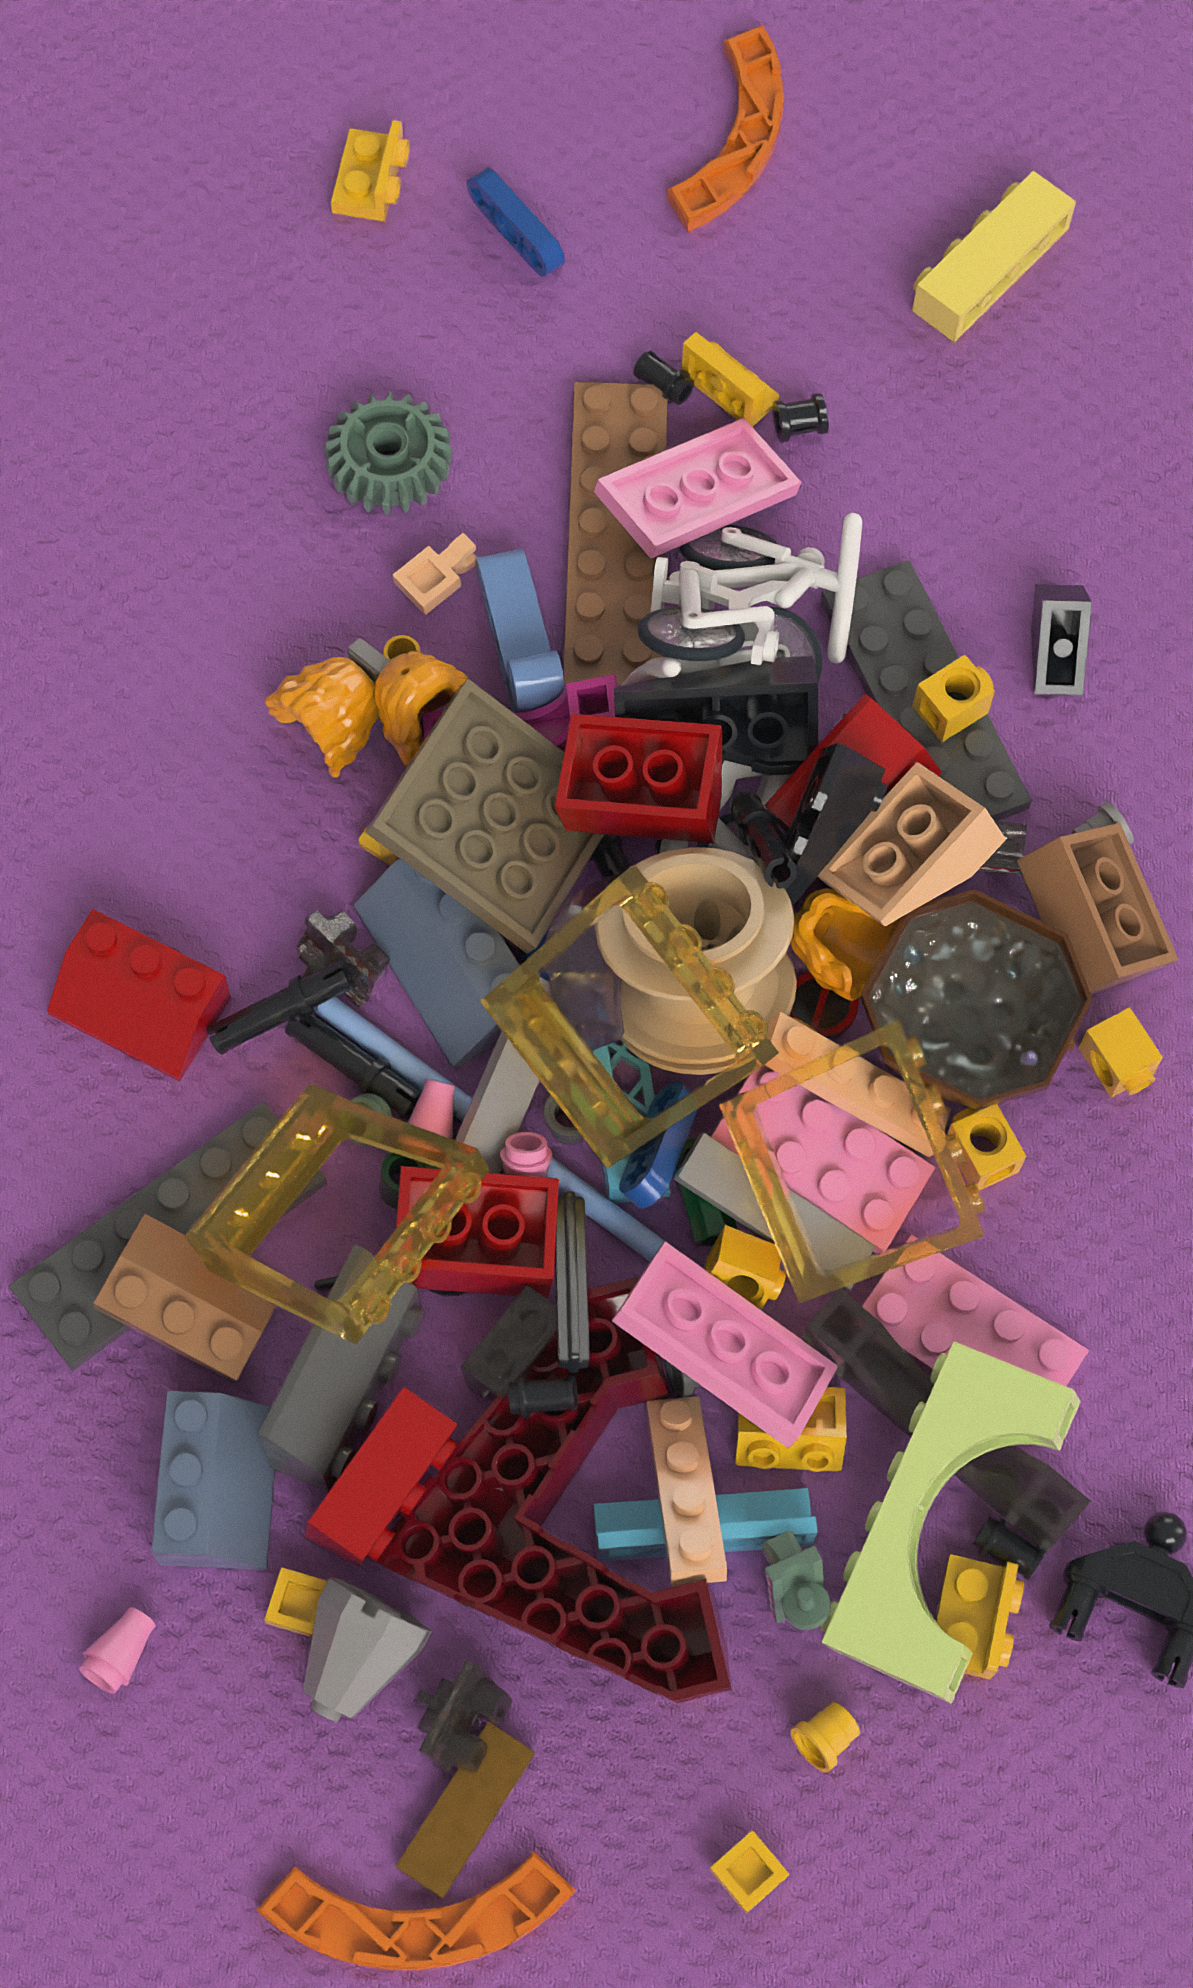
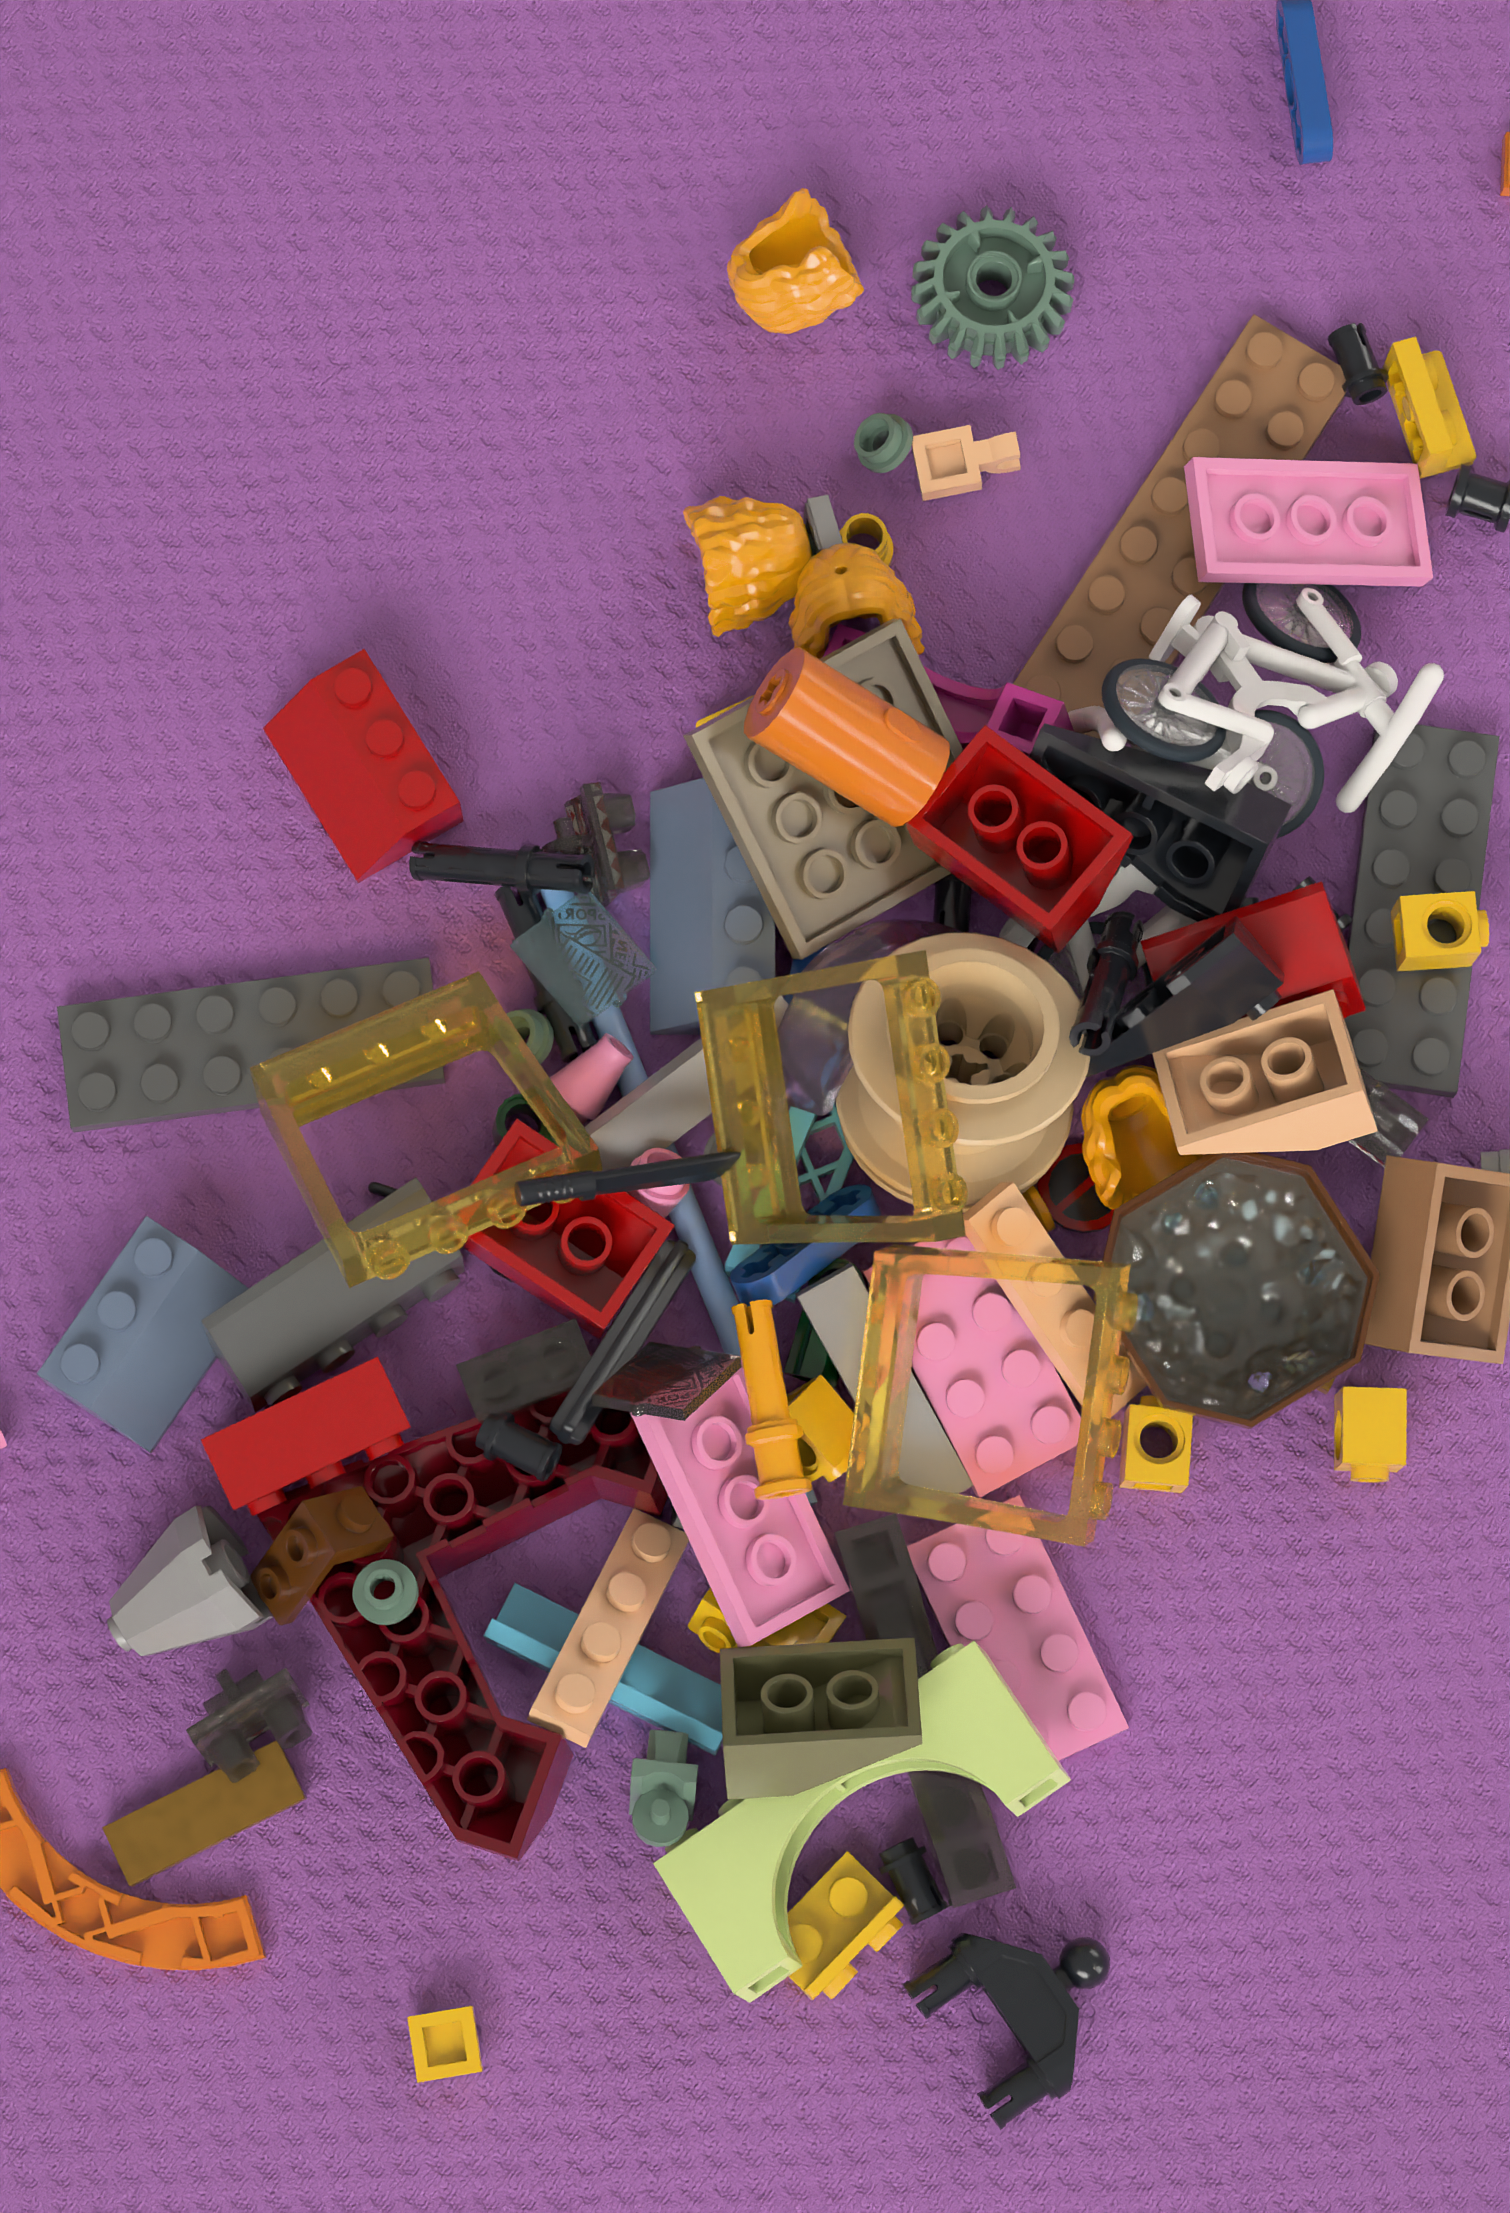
camera: 30 degrees right, 10 degrees up
(177, 1302) = (212, 1132): medium nougat slope -> none
(245, 507) = (793, 268): none -> light orange hair
(295, 1602) = (155, 1503): yellow plate -> none
(375, 589) = (883, 442): none -> sand green plate
(377, 1037) = (583, 958): none -> clear light blue piece
(434, 1558) = (313, 1541): none -> reddish brown bracket
(483, 768) = (846, 737): none -> orange piece
(487, 1173) = (588, 1184): none -> black piece
(521, 1566) = (395, 1607): none -> sand green plate
(527, 664) = (1009, 580): medium blue beam -> none
(624, 1284) = (666, 1381): none -> clear smoke piece
(720, 1277) = (772, 1429): none -> light orange pin
(825, 1736) = (605, 1957): yellow piece -> none
(873, 1459) = (814, 1712): none -> olive slope

